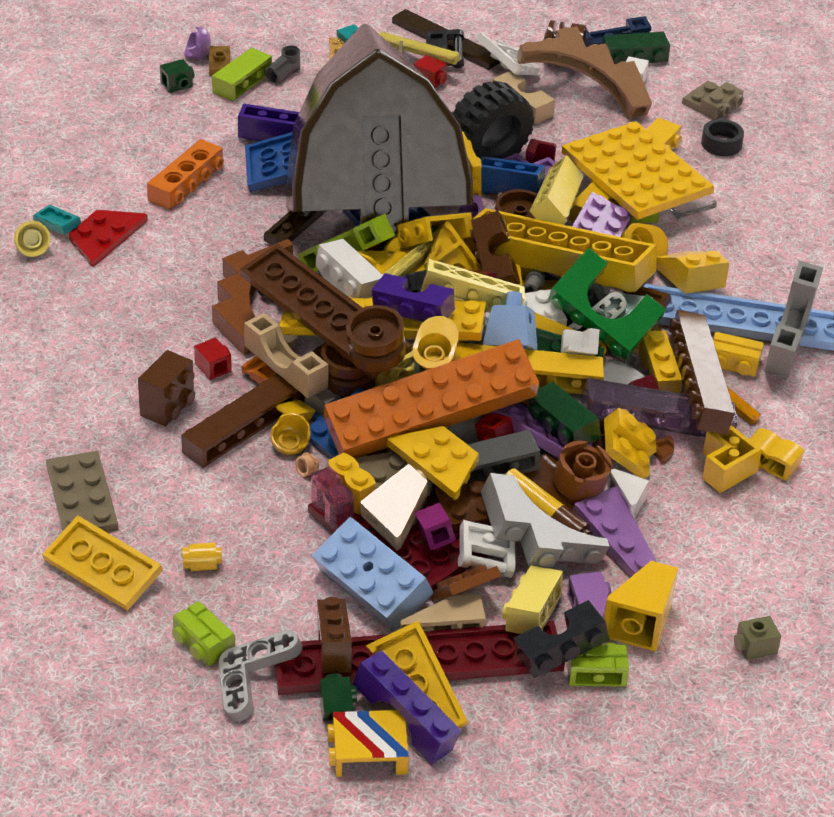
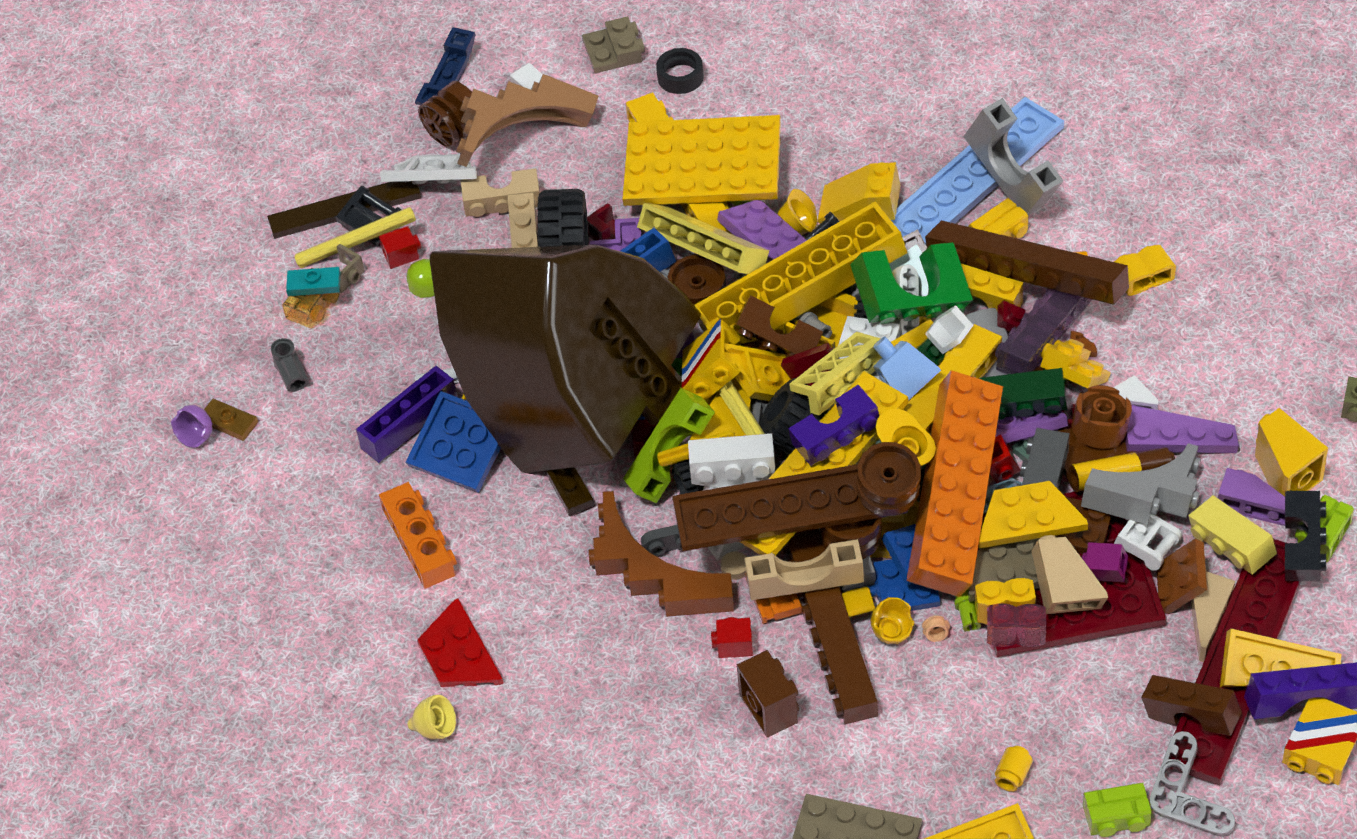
camera: 50 degrees left, 10 degrees up
(57, 219) = (409, 683): teal plate -> none
(176, 75) = (235, 469): dark green brick -> none
(241, 74) = (276, 410): lime brick -> none
(336, 695) = (1261, 739): dark green brick -> none
(372, 573) = (1099, 644): light blue brick -> none
(645, 46) = (491, 61): dark green brick -> none
(729, 459) = (1141, 303): yellow brick -> none

